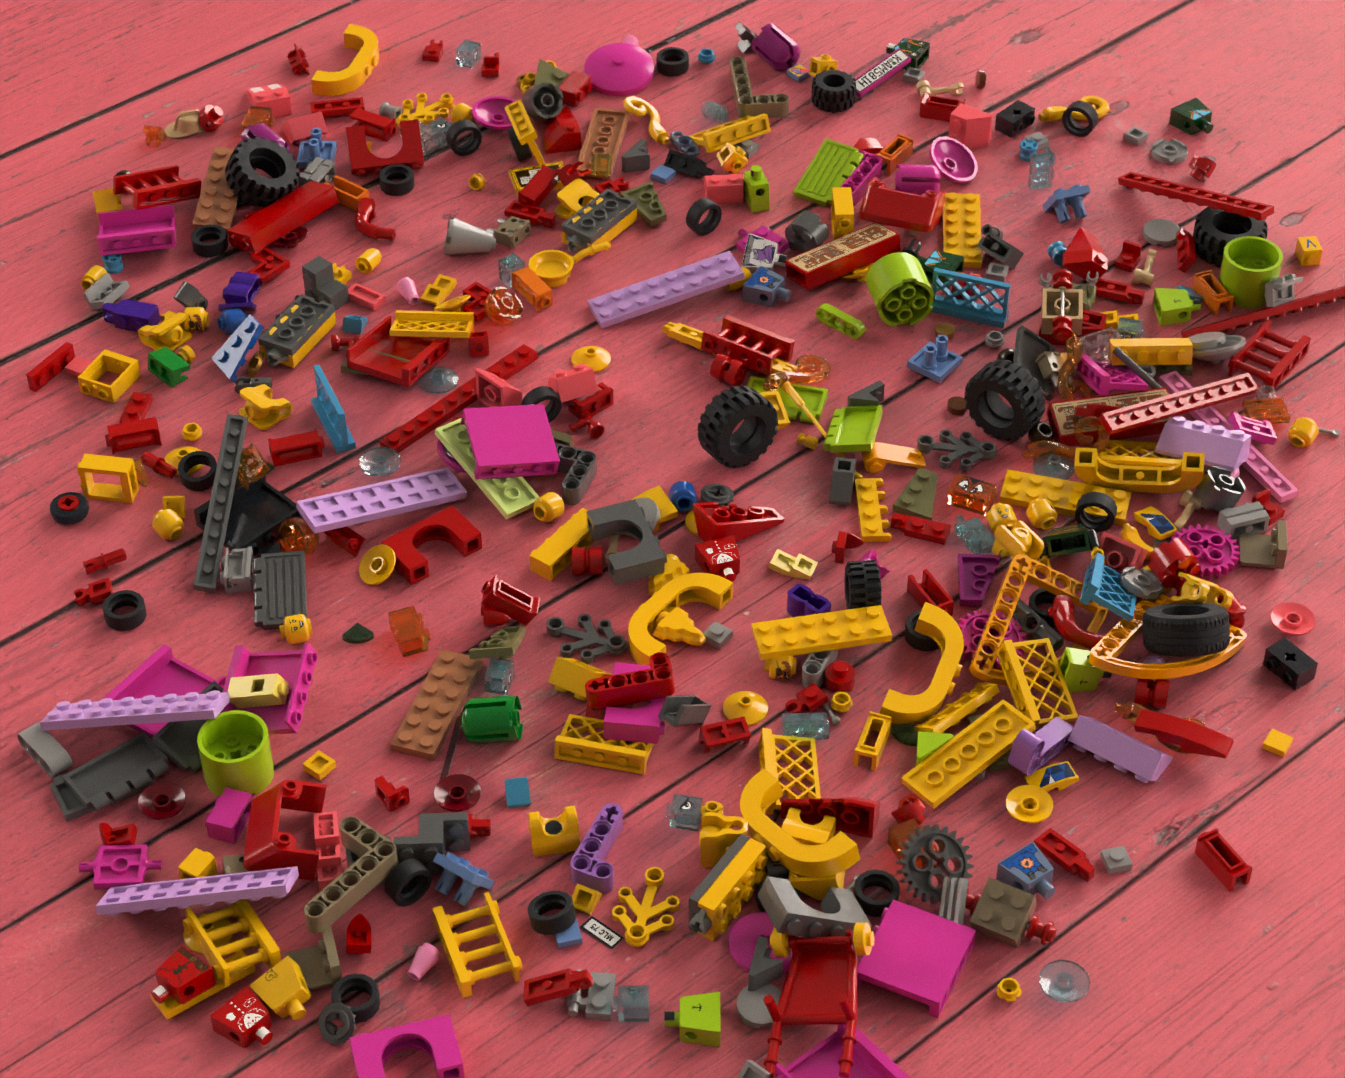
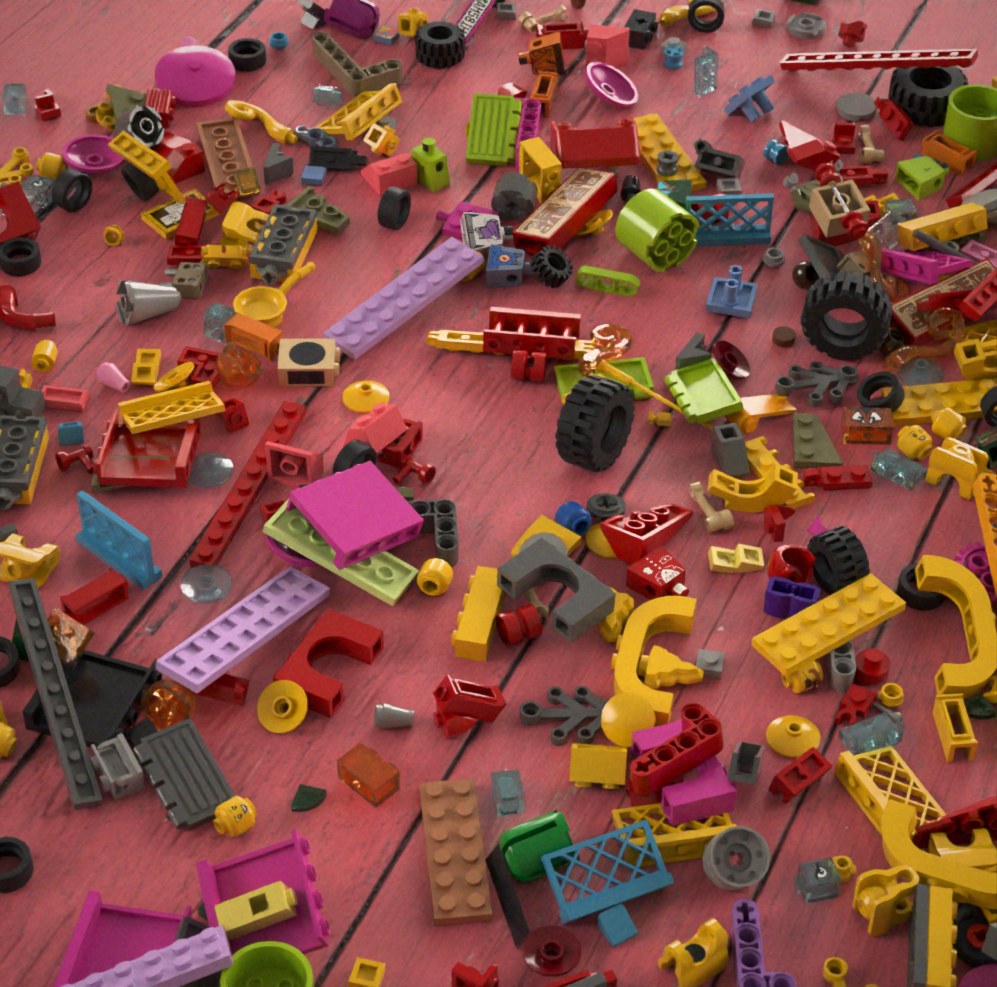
camera: 25 degrees left, 0 degrees up
(451, 596) = (392, 716): none -> light grey cone
(502, 644) = (490, 753): olive wing -> none
(532, 771) = (608, 896): none -> dark azure fence
(538, 219) = (233, 257): none -> yellow hinge
(560, 319) = (308, 362): none -> brick
(614, 772) = (752, 861): none -> light grey wheel
(620, 648) = (624, 715): none -> yellow dish
(798, 531) = (715, 520): none -> tan brick
(805, 290) = (551, 266): none -> black tyre
(825, 580) = (792, 563): none -> red piece
(835, 519) = (757, 494): none -> yellow arch
(896, 410) = (731, 359): none -> dark red dish
(915, 122) = (545, 54): none -> orange torso
(917, 179) = (592, 112): dark pink cylinder -> none
(933, 589) = (899, 544): red window -> none
(945, 329) = (717, 263): pearl gold tile -> none
(953, 237) = (667, 163): none -> dark grey wheel
(975, 577) = (930, 513): magenta wing -> none
(996, 464) = (877, 381): none -> black tyre

